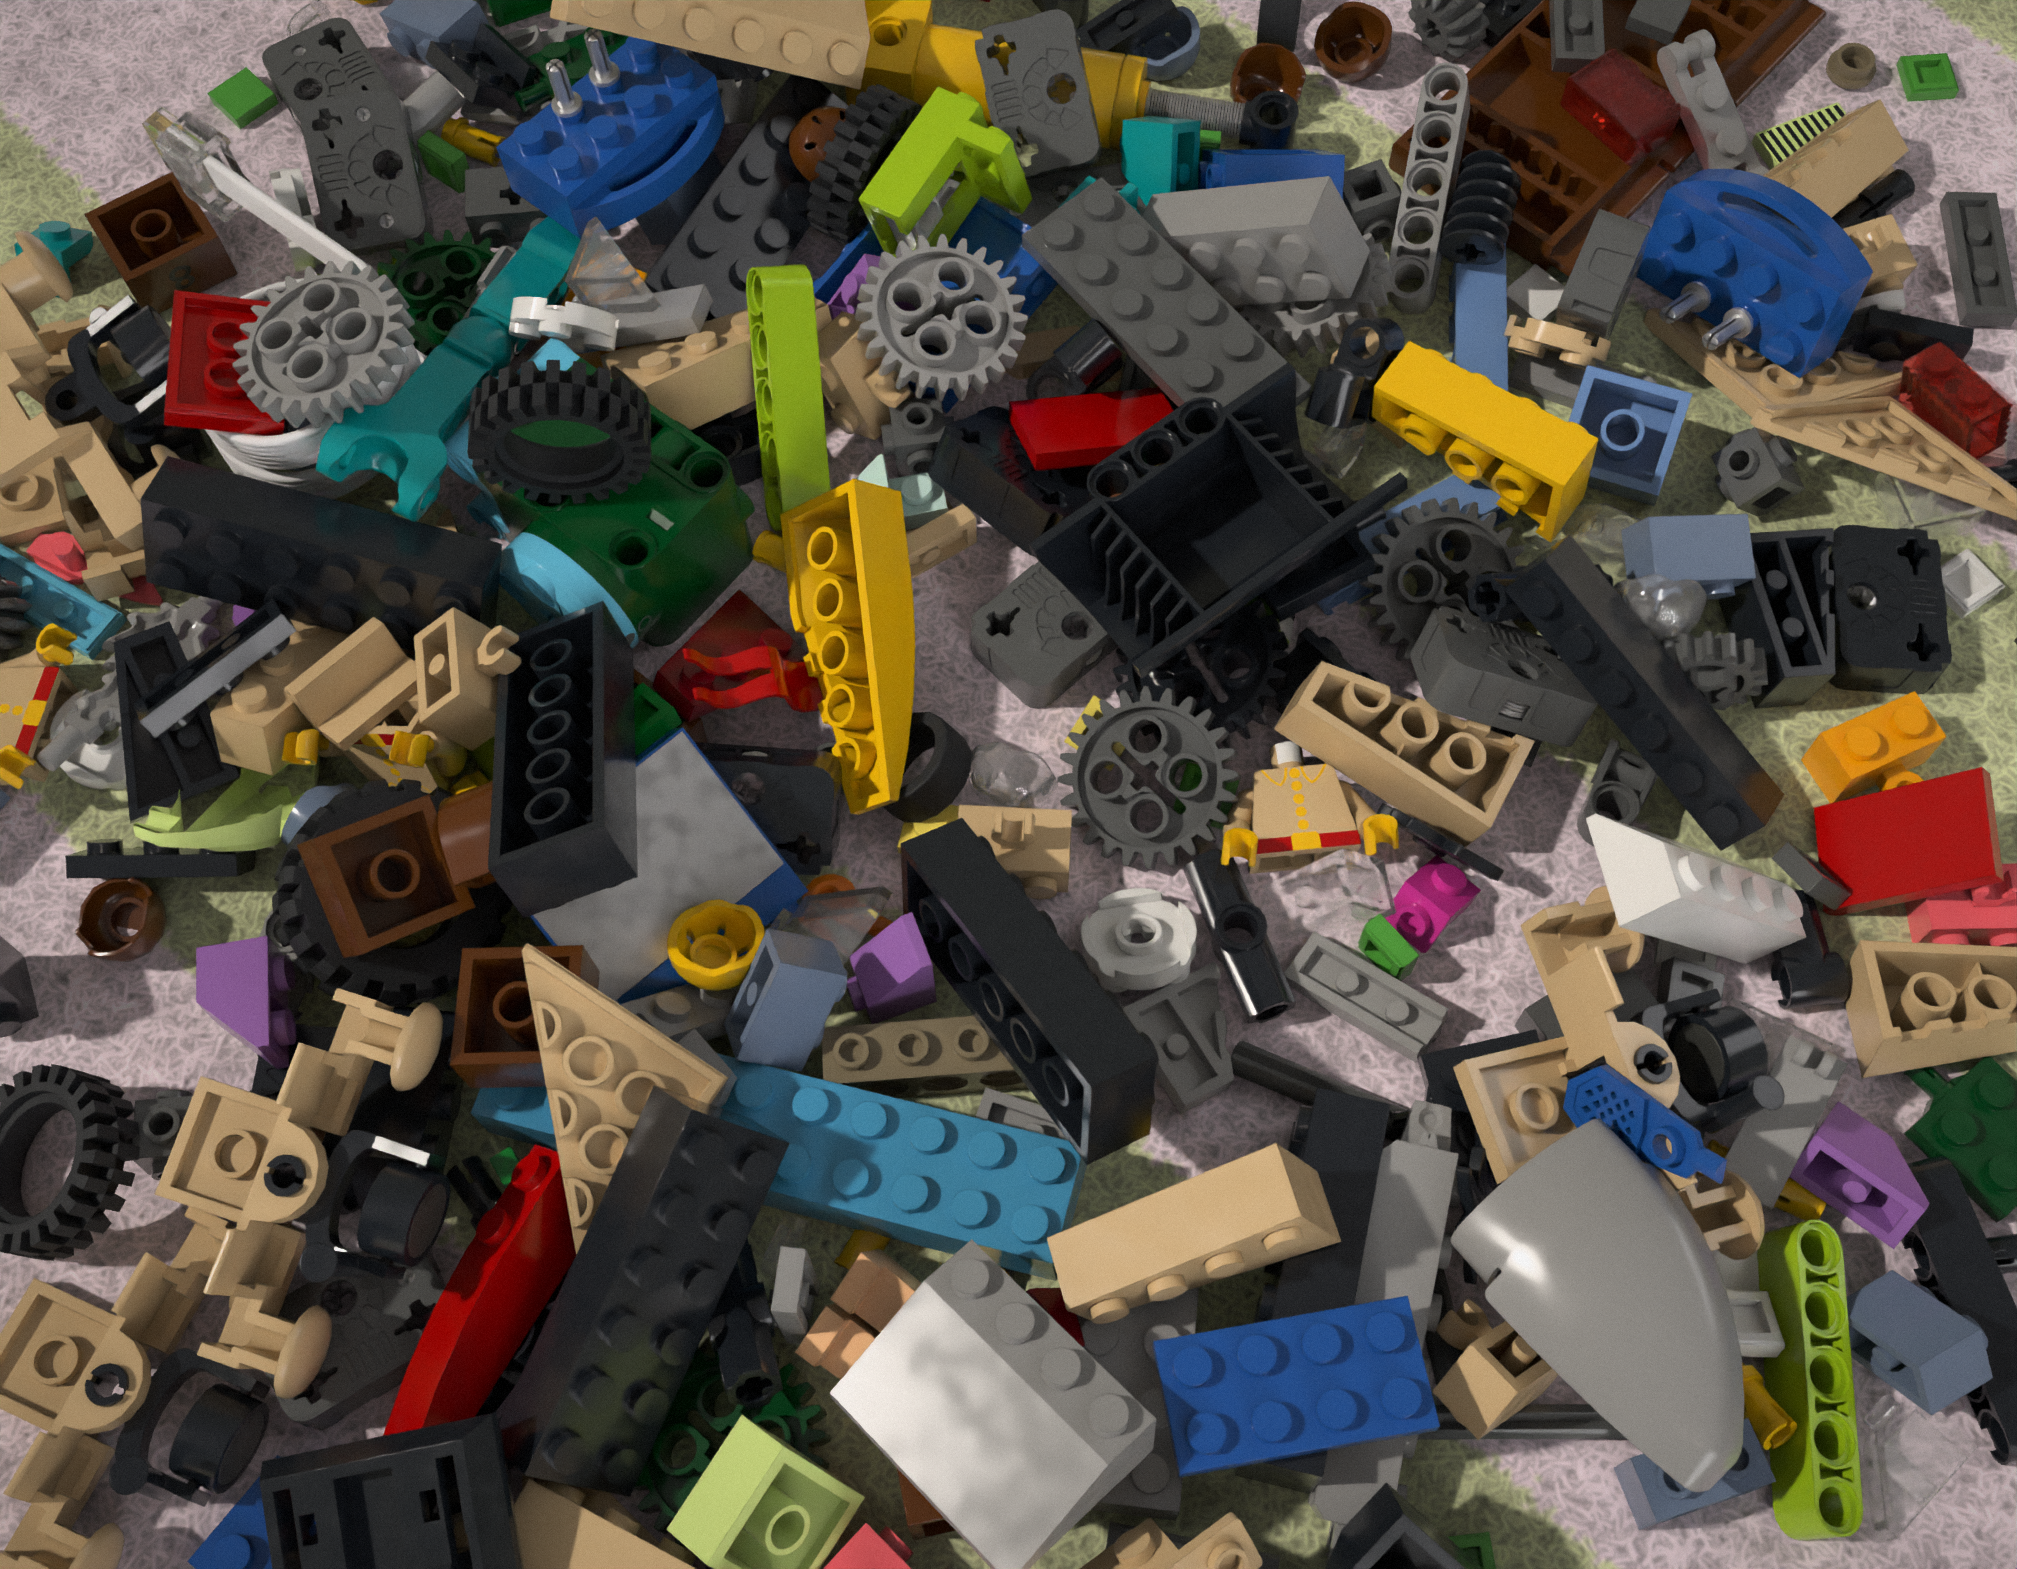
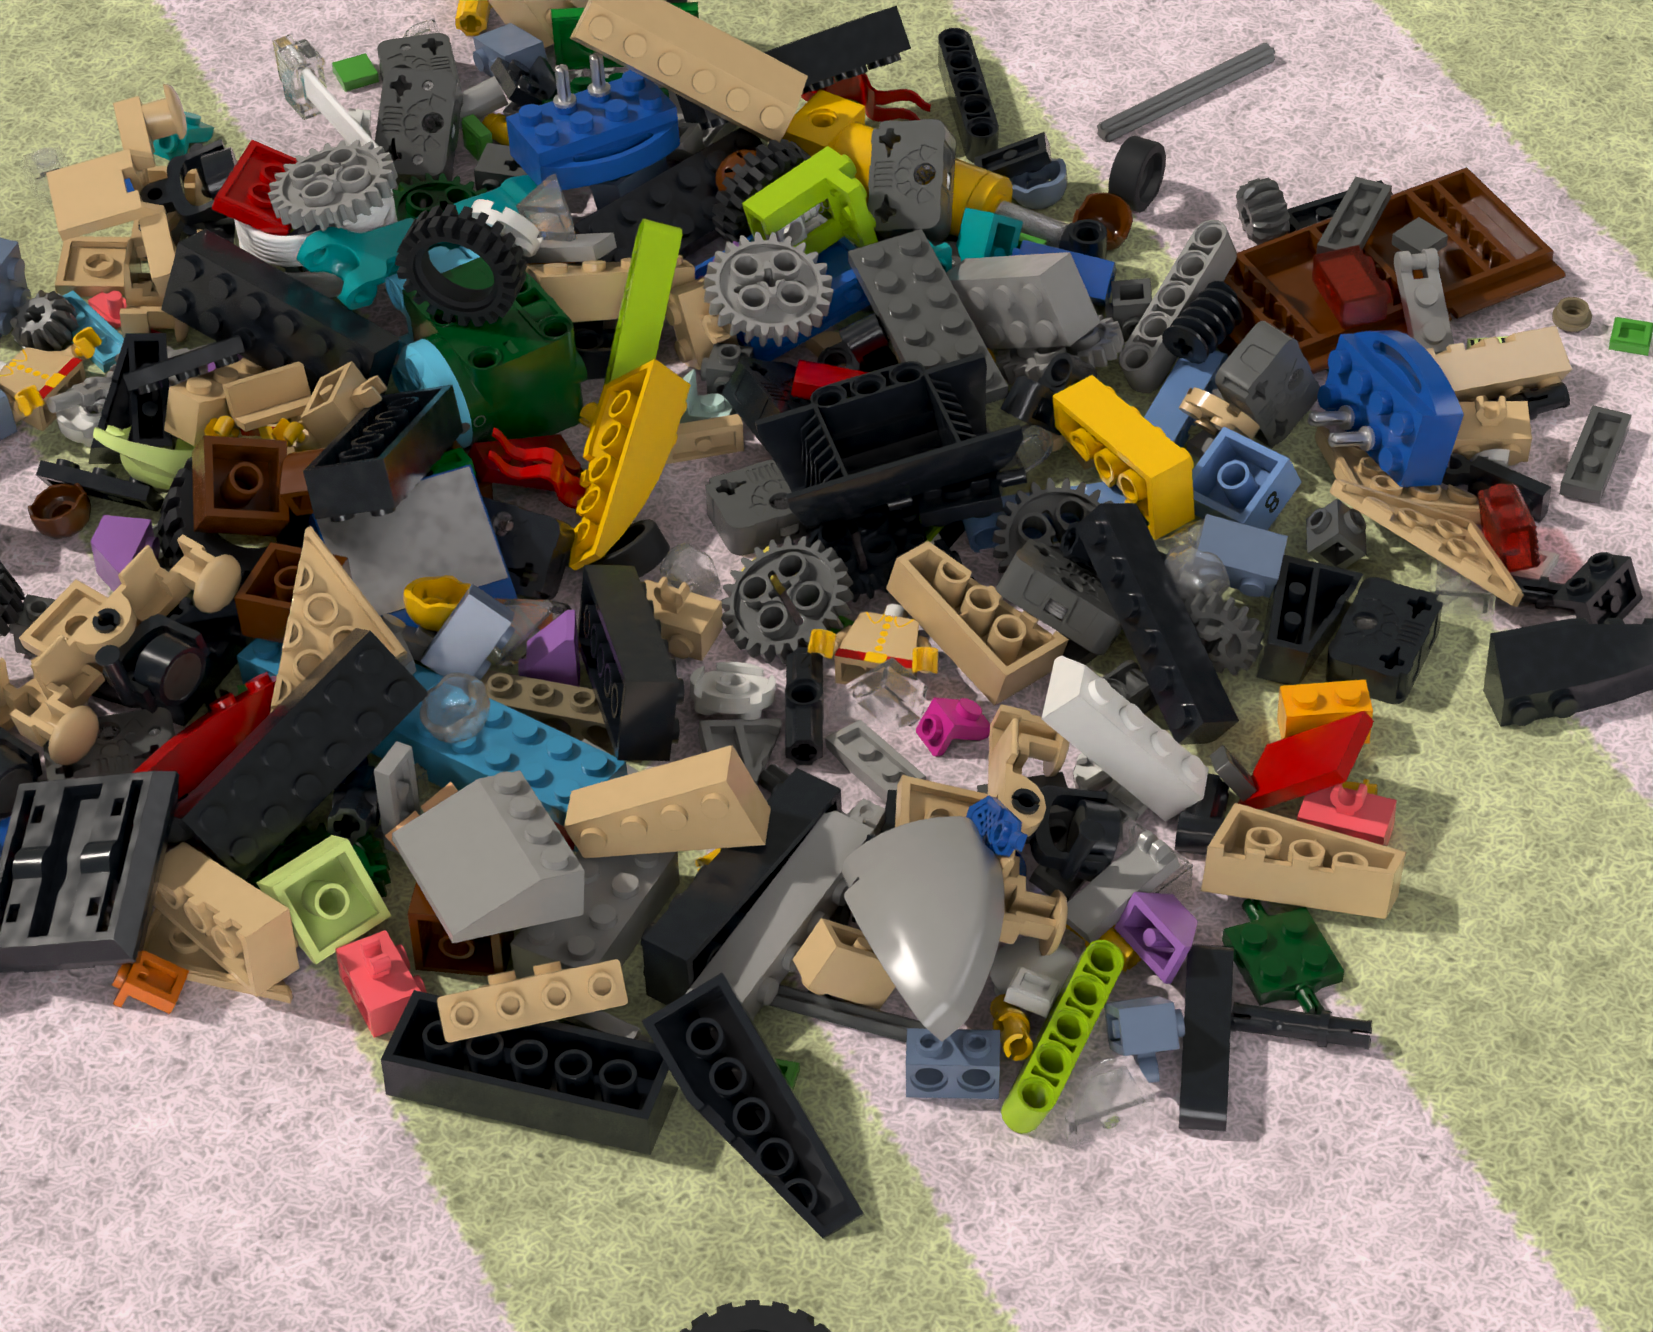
camera: 20 degrees right, 20 degrees down
(161, 243) = (262, 120): reddish brown brick -> none
(836, 1153) = (459, 720): none -> clear helmet
(1294, 1386) = (692, 906): blue plate -> none
(1353, 56) = (1183, 202): reddish brown helmet -> none
(1387, 948) = (904, 737): bright green tile -> none
(1441, 843) = (968, 680): black piece -> none
(1968, 583) = (1463, 646): white tile -> none

